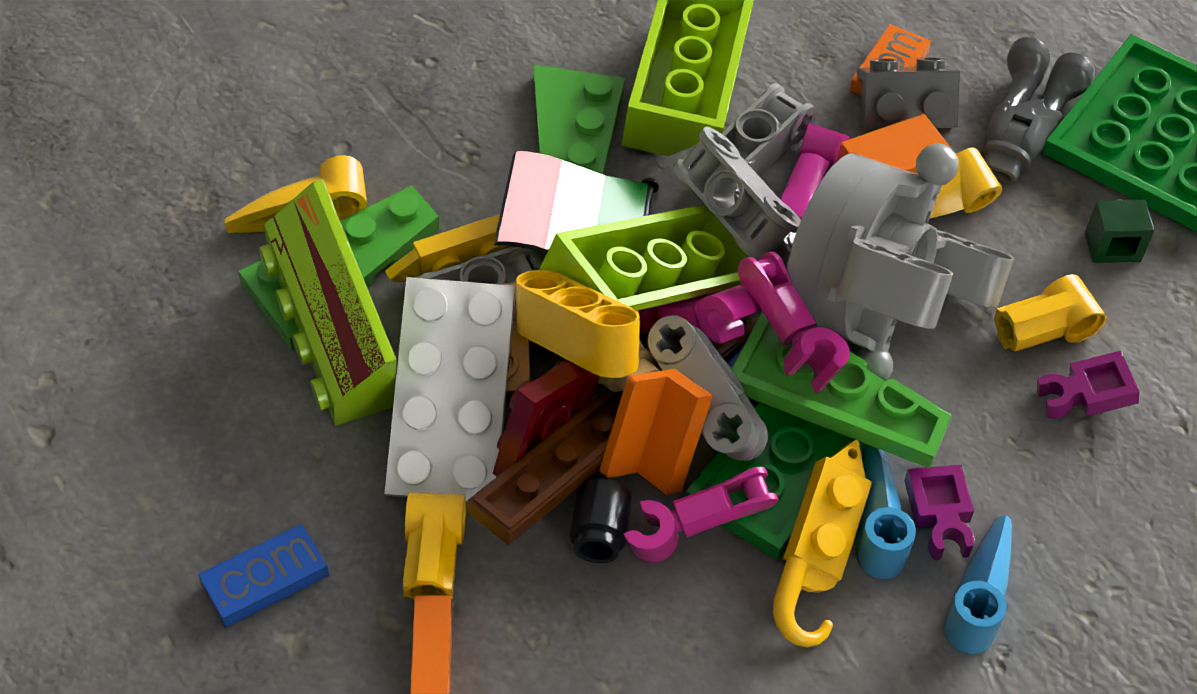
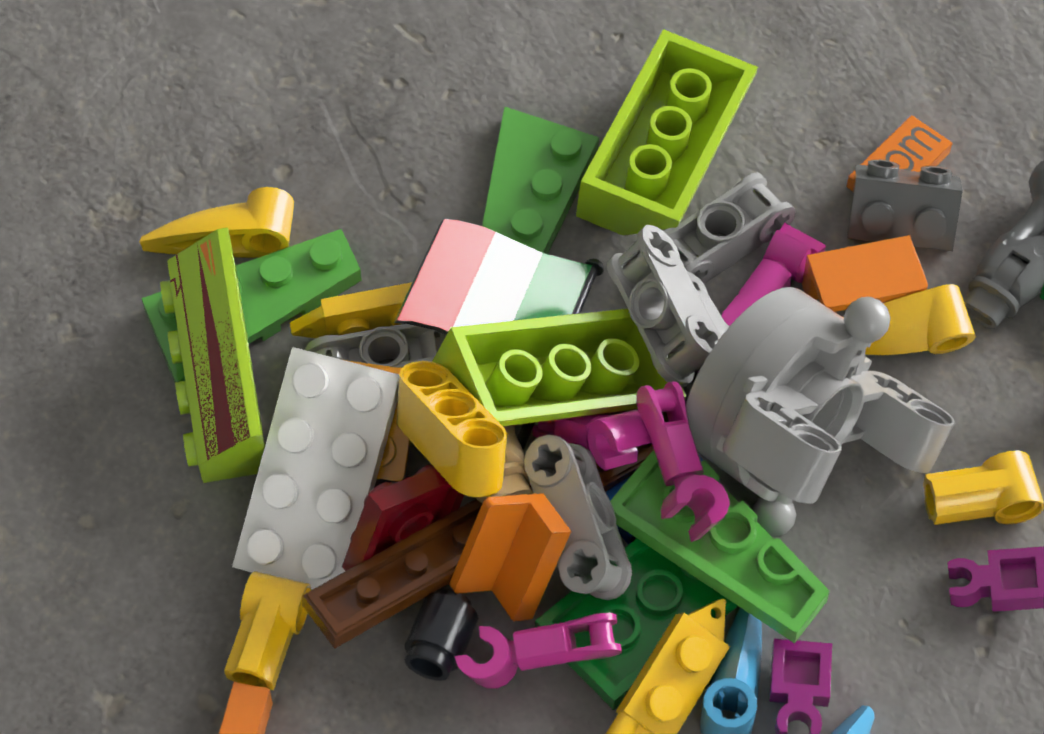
camera: 15 degrees right, 5 degrees up
(263, 575) = (95, 630): blue tile -> none

